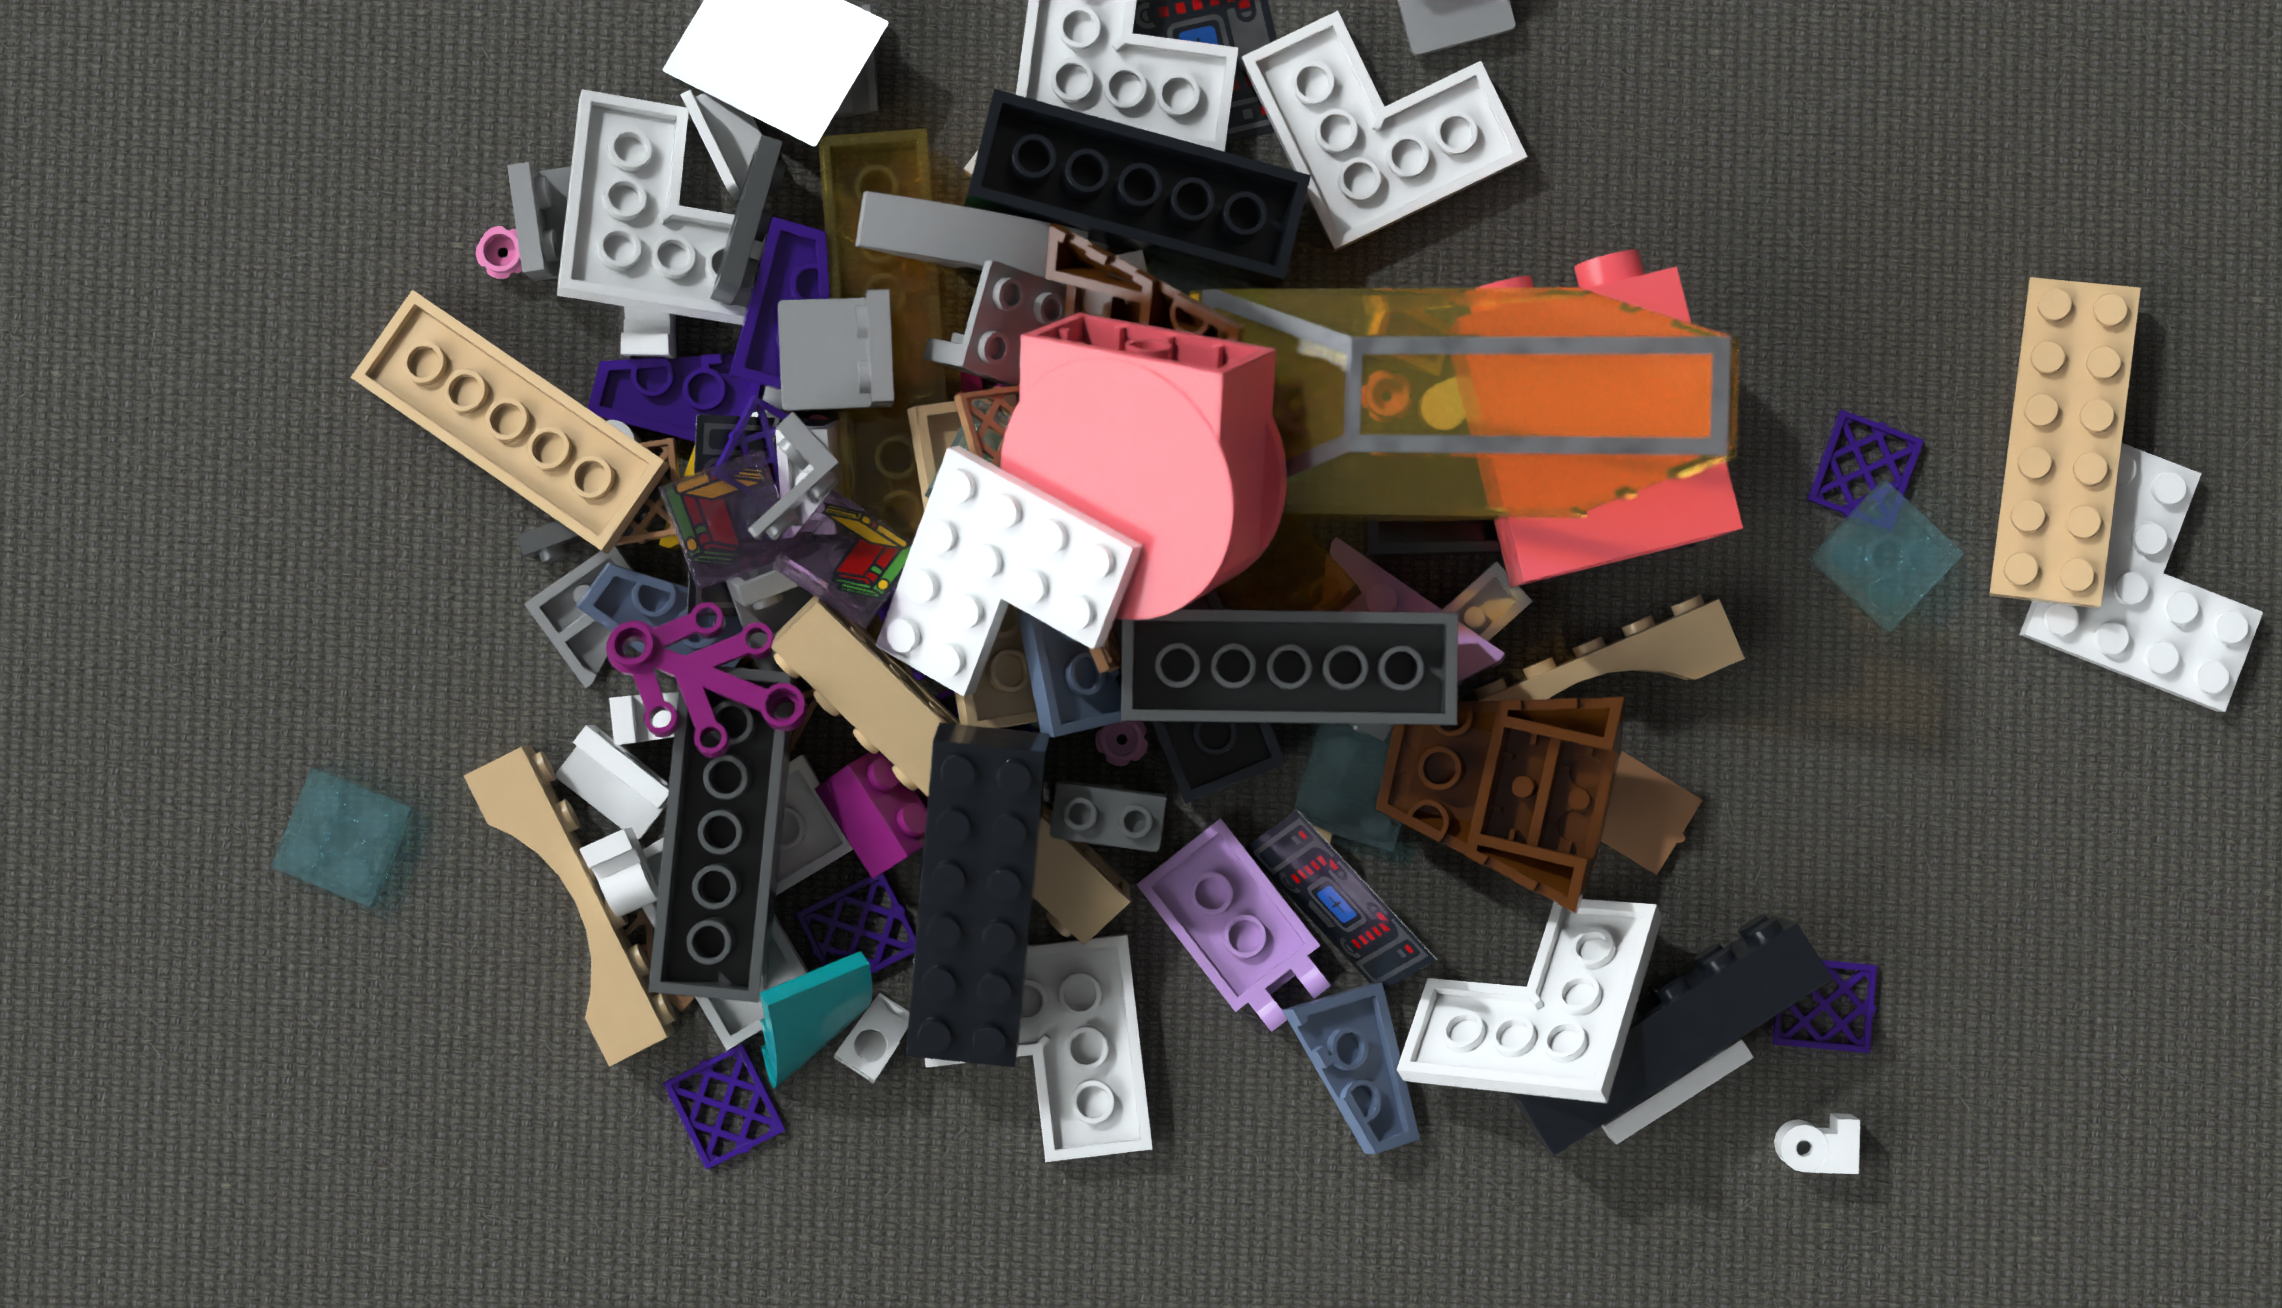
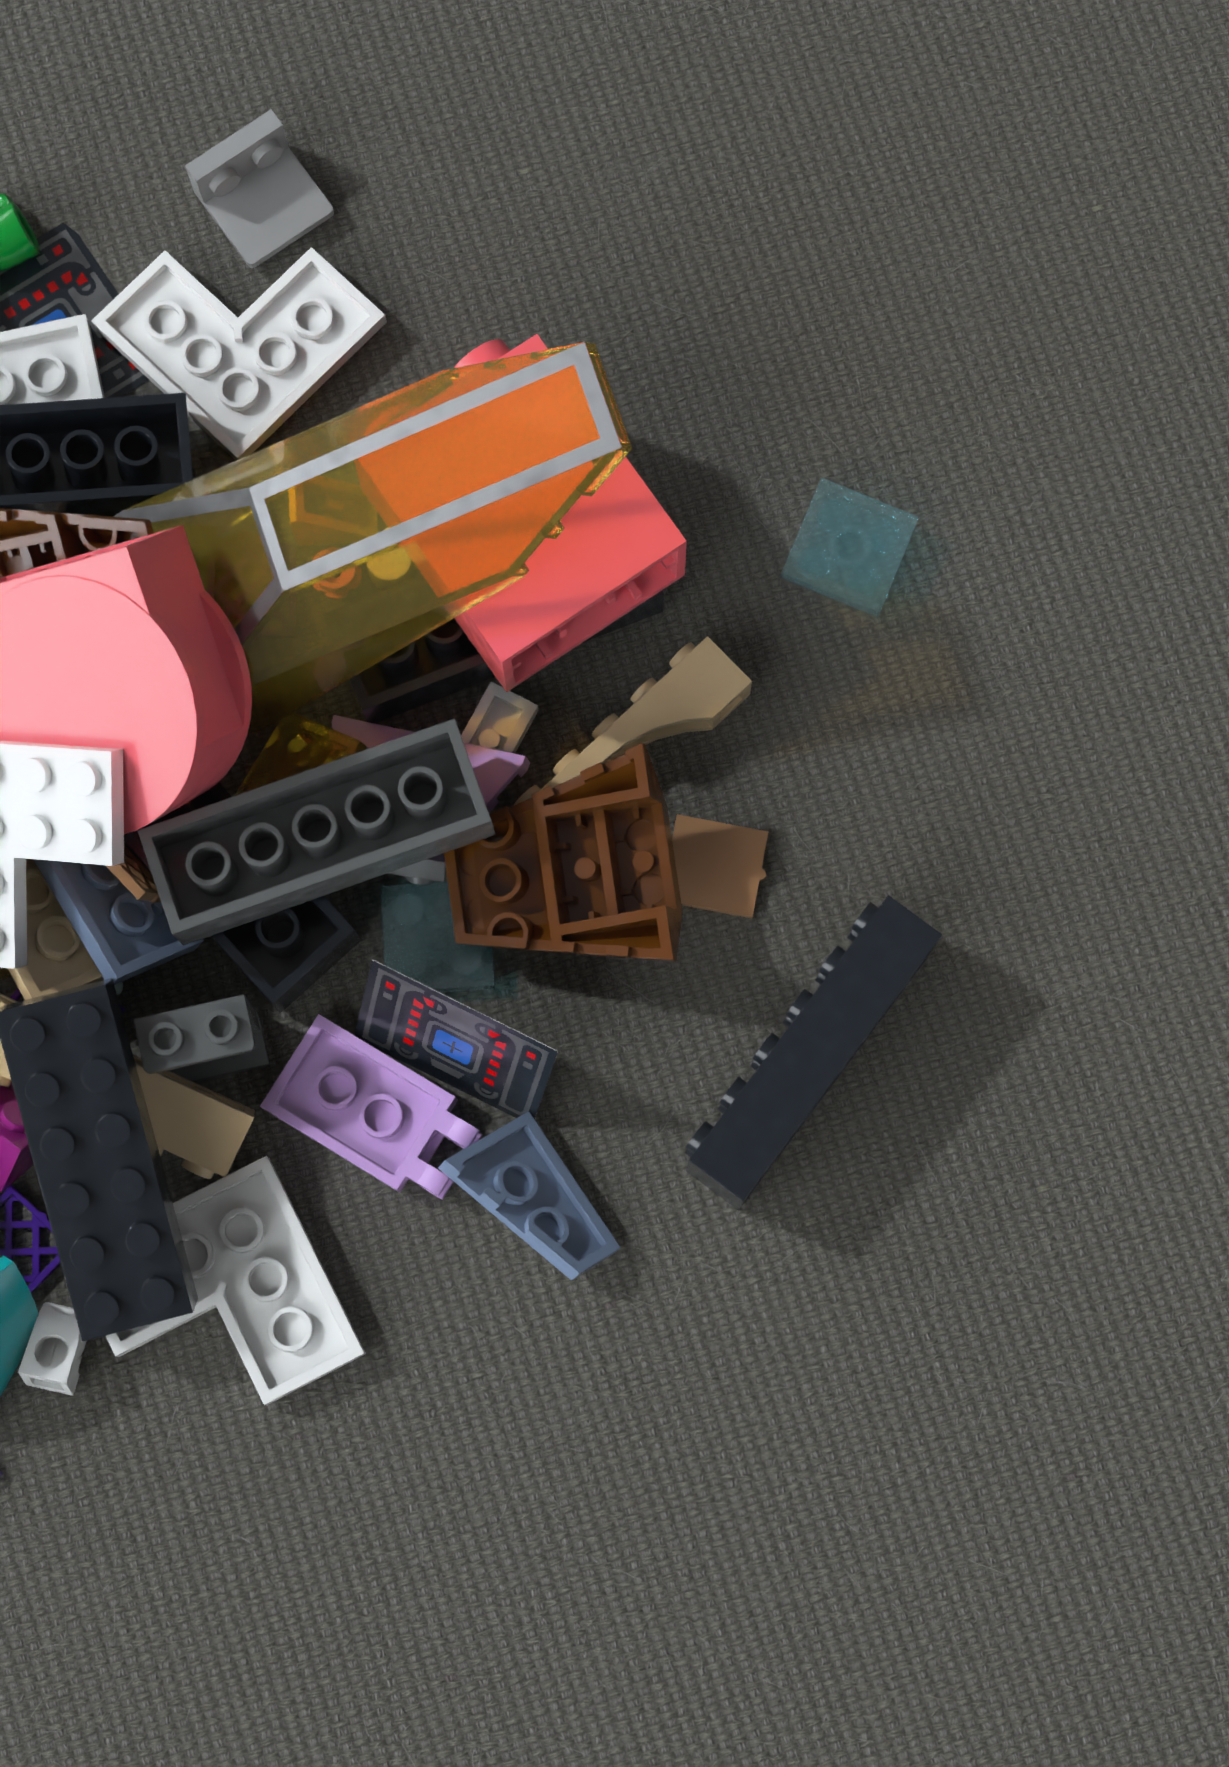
camera: 10 degrees left, 10 degrees down
(1121, 754) = (193, 962): bright pink plate -> none
(1556, 1033) = (702, 1084): white plate -> none
(1677, 1091) = (841, 1105): white plate -> none
(1821, 1149) = (997, 1116): white leg -> none
(1865, 1008) = (998, 968): dark purple window -> none
(1879, 430) = (801, 442): dark purple window -> none
(2065, 442) = (971, 389): tan plate -> none
(2148, 620) = (1073, 514): white plate -> none

